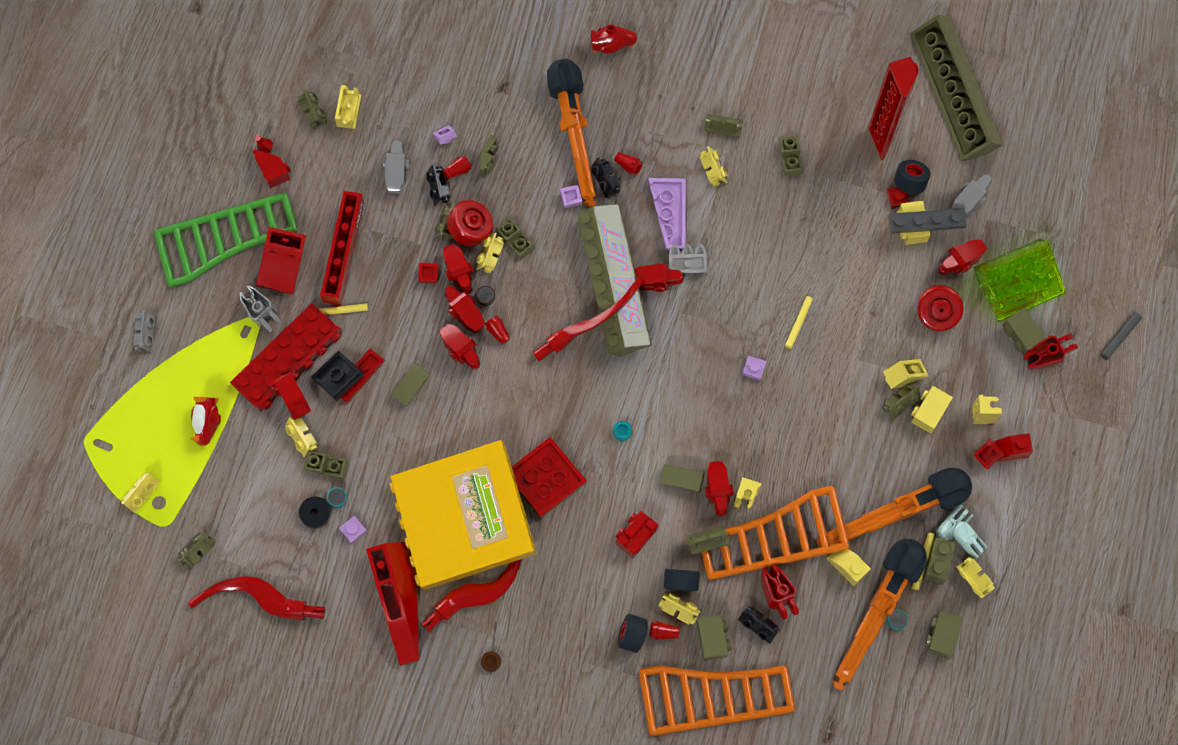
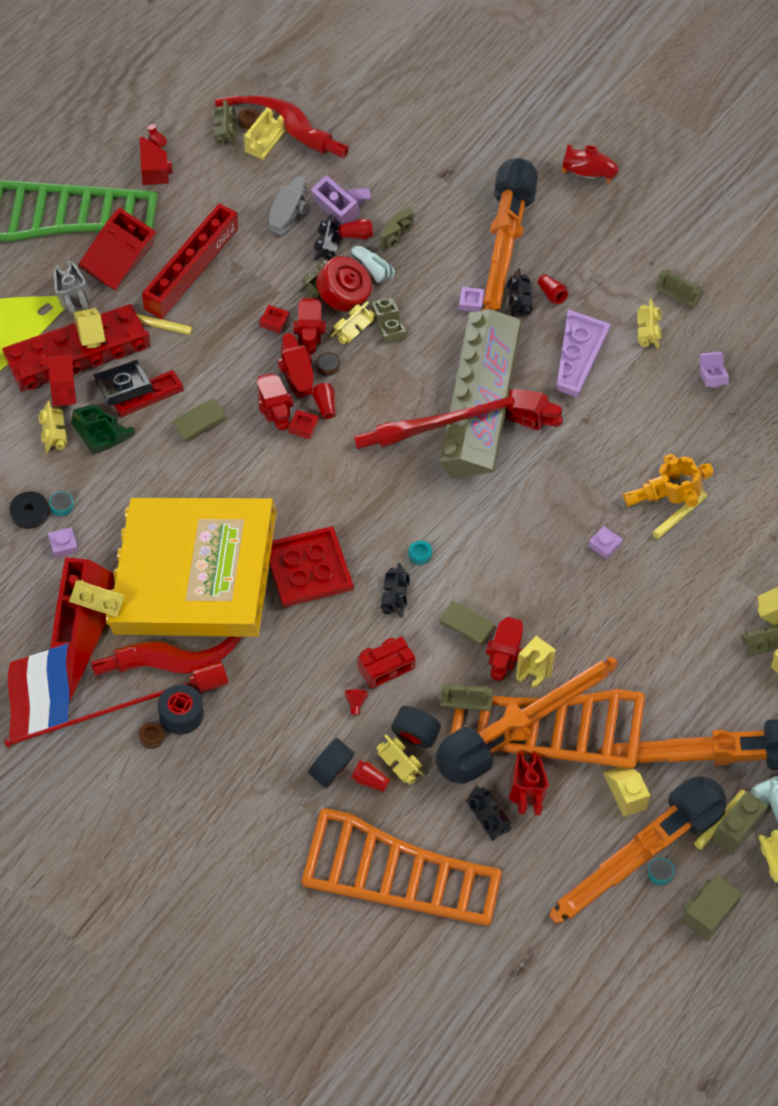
camera: 20 degrees right, 15 degrees down
(291, 340) = (89, 327): none -> light yellow slope
(326, 465) = (64, 467): olive slope -> none
(327, 95) = (247, 117): none -> reddish brown tile
(336, 422) = (98, 428): none -> dark green slope
(366, 85) = (294, 122): none -> red animal
(397, 664) = (41, 693): none -> flag
(411, 574) = (96, 598): none -> light yellow hinge
(431, 150) = (335, 201): none -> lavender brick
(481, 194) = (376, 267): none -> light aqua arm
(490, 357) = (303, 424): none -> red plate
(503, 640) = (176, 717): none -> black wheel
(621, 478) = (397, 582): none -> black hinge
(627, 571) = (355, 698): none -> red rock
(688, 261) = (575, 406): light grey plate -> none
(712, 637) = (425, 805): olive brick -> none
(726, 588) = (468, 754): none -> piece
(777, 189) = (712, 369): none -> lavender bracket
(778, 307) = (662, 487): none -> light orange piece
(790, 155) = (744, 344): olive slope -> none

